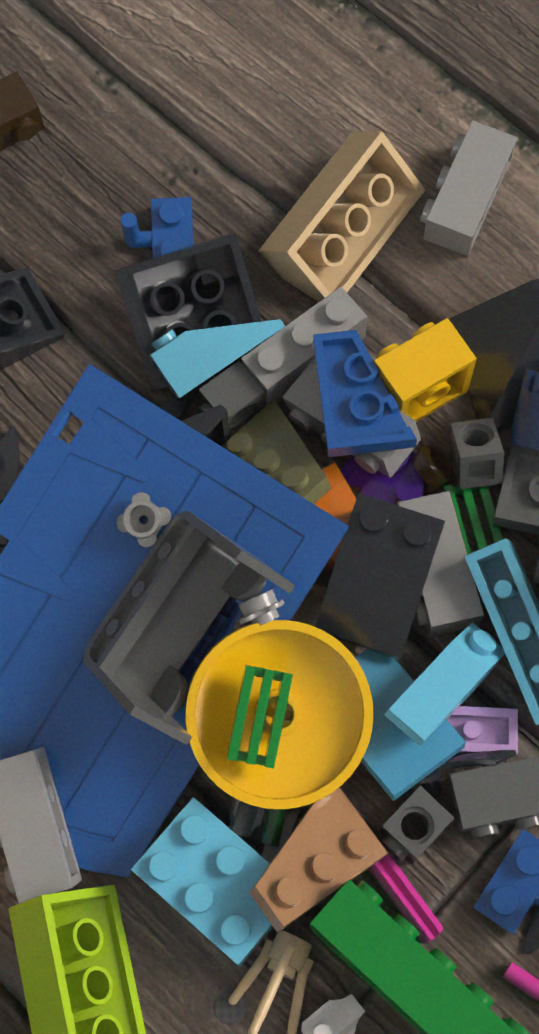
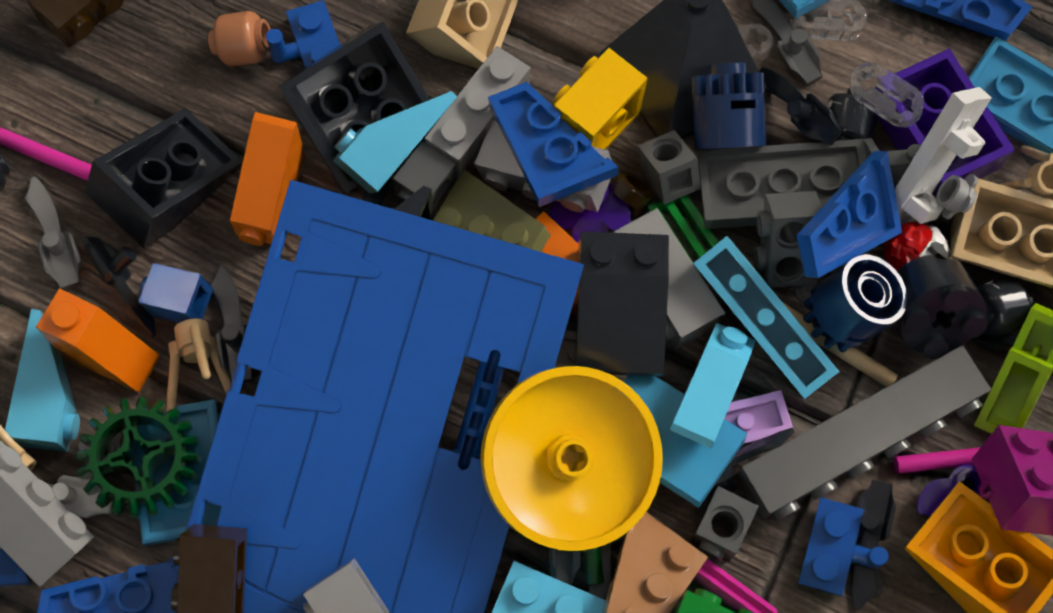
camera: 25 degrees left, 0 degrees up
(88, 336) = (269, 163): none -> orange slope
(97, 213) = (239, 38): none -> nougat head
(141, 506) = (381, 302): light grey plate -> none
(167, 614) = (438, 392): dark grey windscreen -> none
(252, 756) = (574, 461): green tile -> none
(260, 608) = (526, 364): light grey plate -> none

